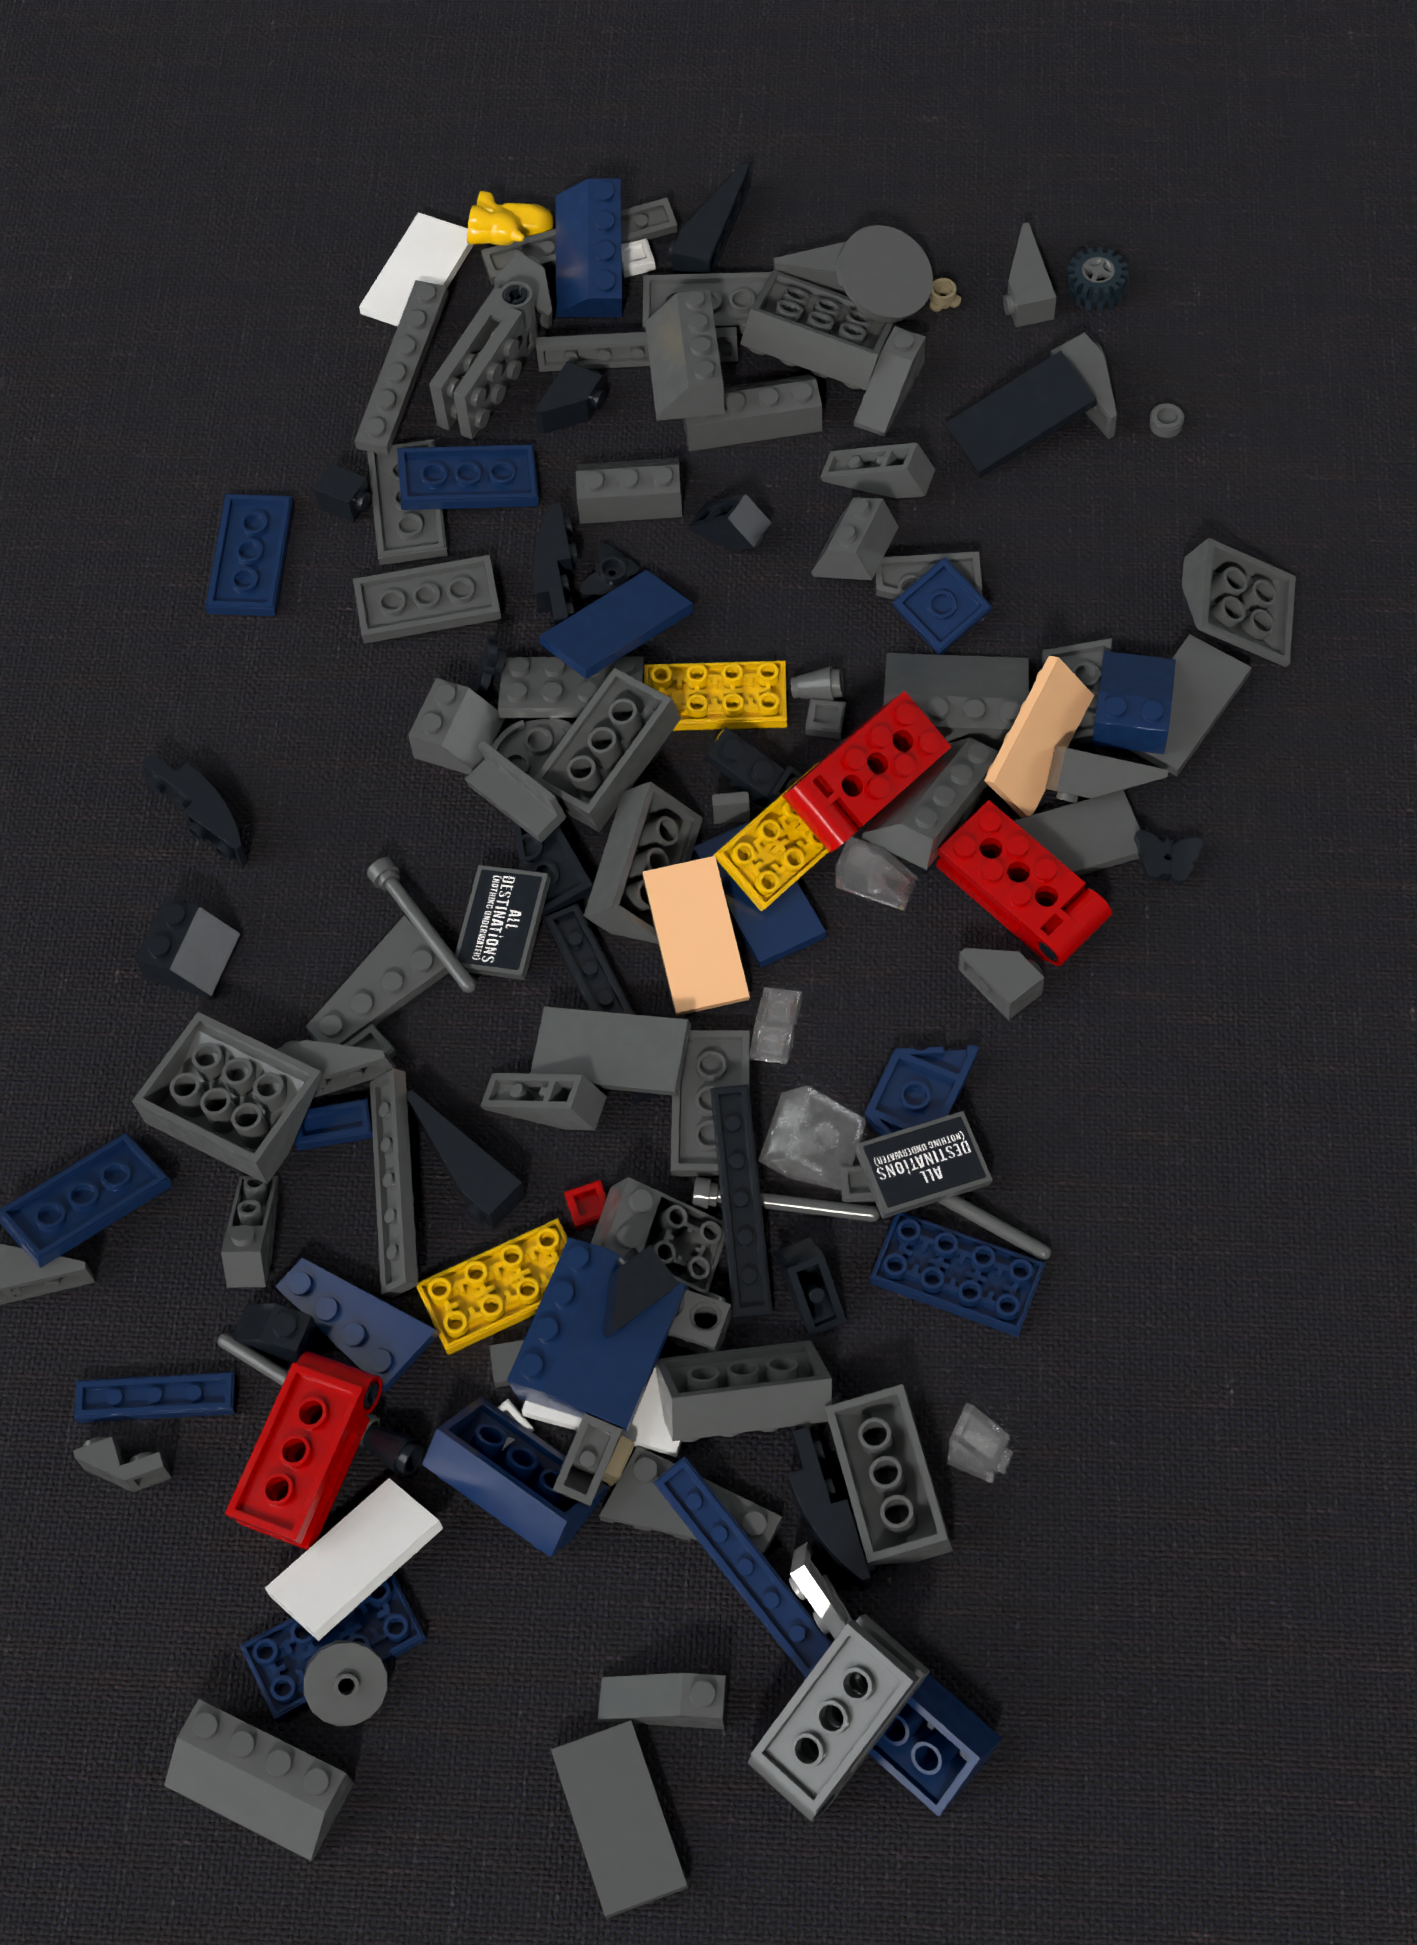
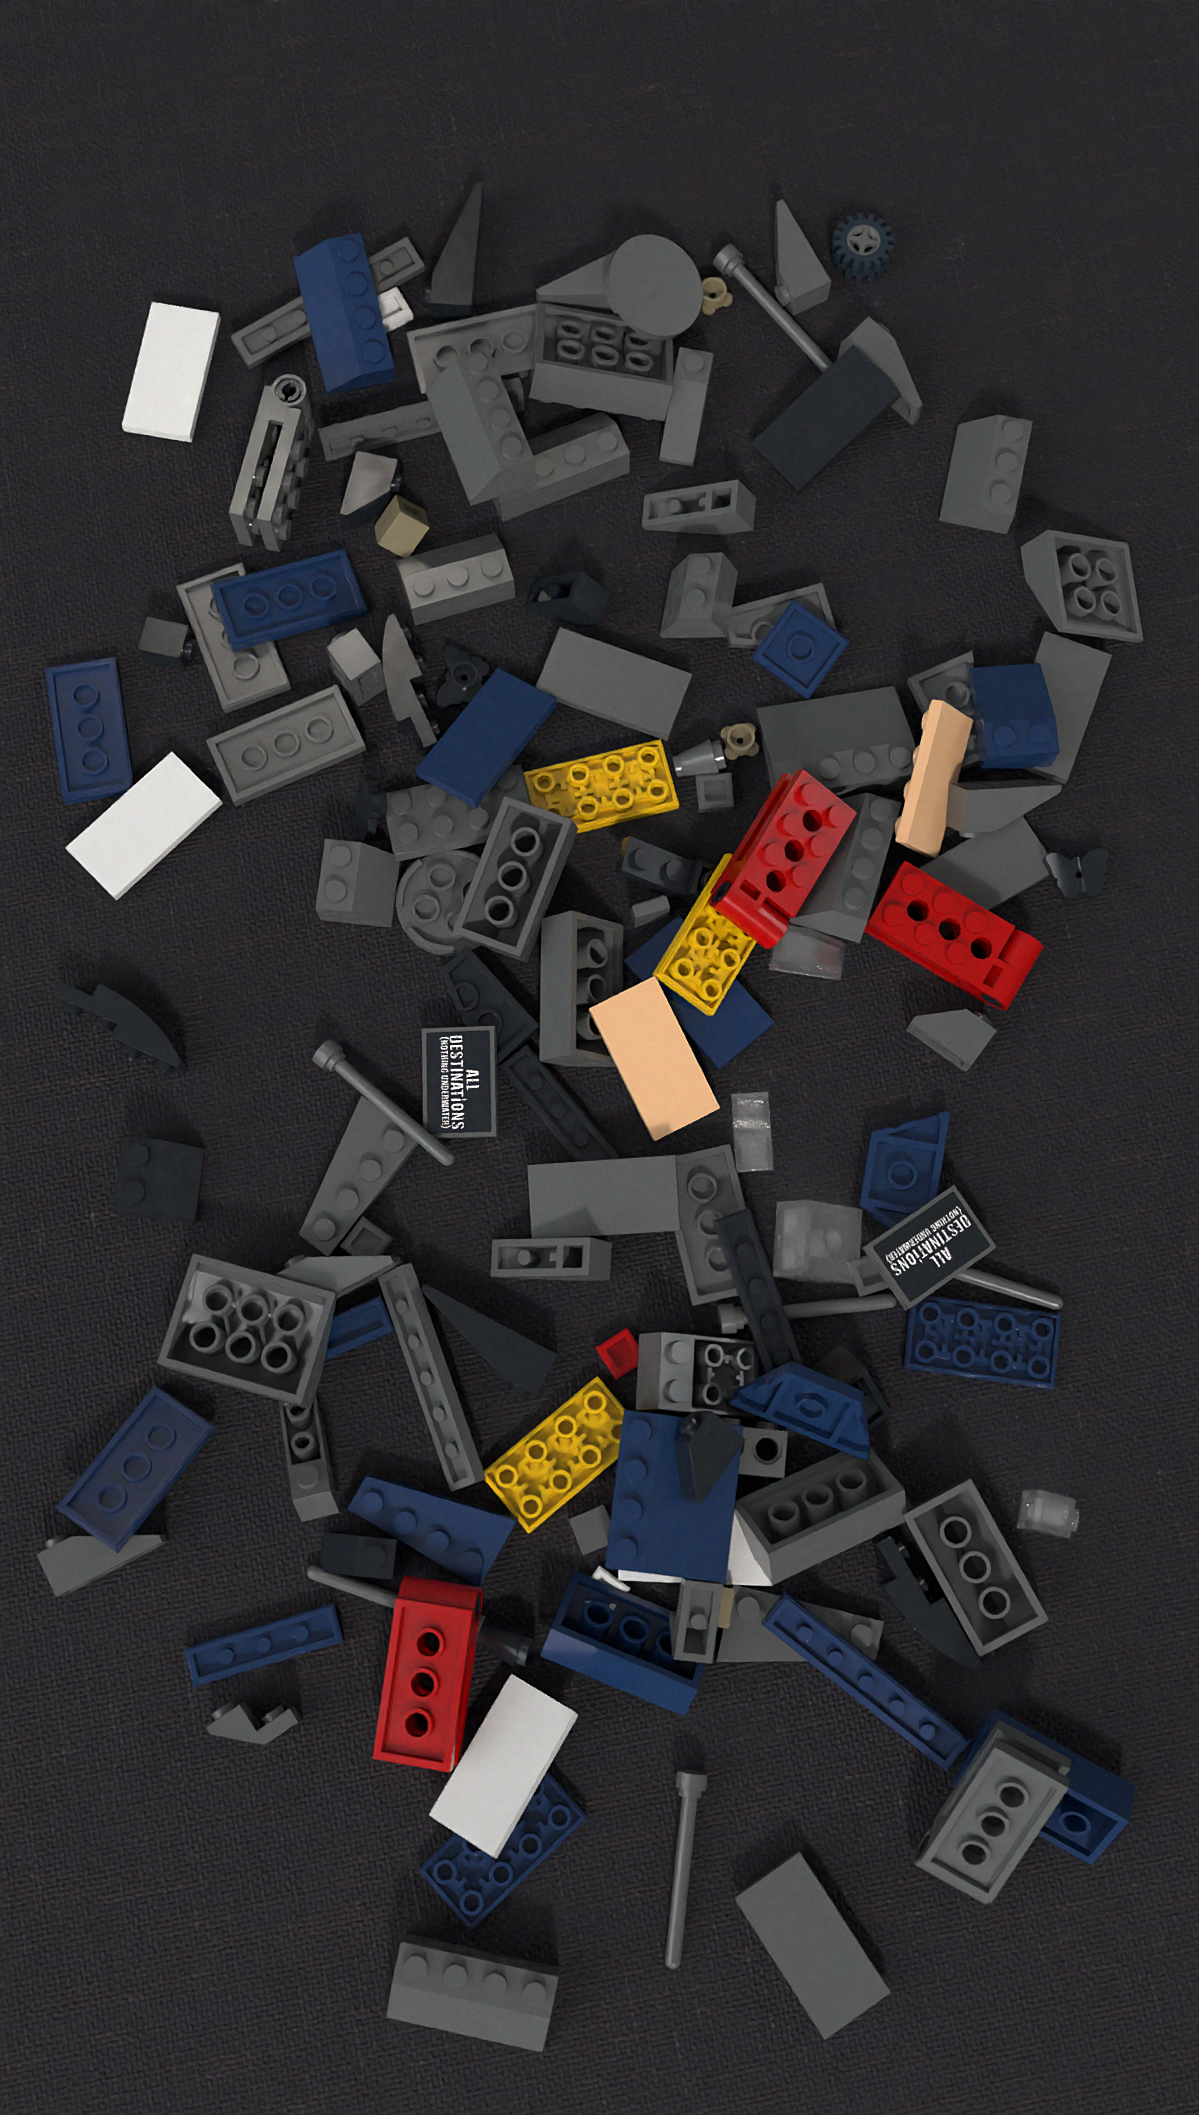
camera: 20 degrees left, 15 degrees up
(273, 642) = (144, 825): none -> white tile
(340, 1661) = (518, 1872): dark grey plate -> none
(401, 367) = (187, 488): dark grey plate -> none
(505, 222) = (250, 300): yellow animal -> none
(510, 539) = (356, 666): none -> dark grey brick
(515, 794) = (438, 947): dark grey panel -> none
(530, 271) = (288, 357): dark grey slope -> none
(538, 1632) = (690, 1786): none -> dark grey piece
(591, 435) = (401, 526): none -> dark tan panel
(665, 1700) = (823, 1823): dark grey slope -> none
(754, 604) = (614, 683): none -> dark grey tile
(760, 1281) = (809, 1405): none -> dark blue wing
(810, 1584) = (935, 1687): light grey wing -> none
(866, 669) = (739, 731): none -> dark tan plate
(968, 271) = (730, 262): none -> dark grey piece
(1166, 420) = (965, 394): dark grey tile -> none
(1168, 489) = (986, 473): none -> dark grey slope

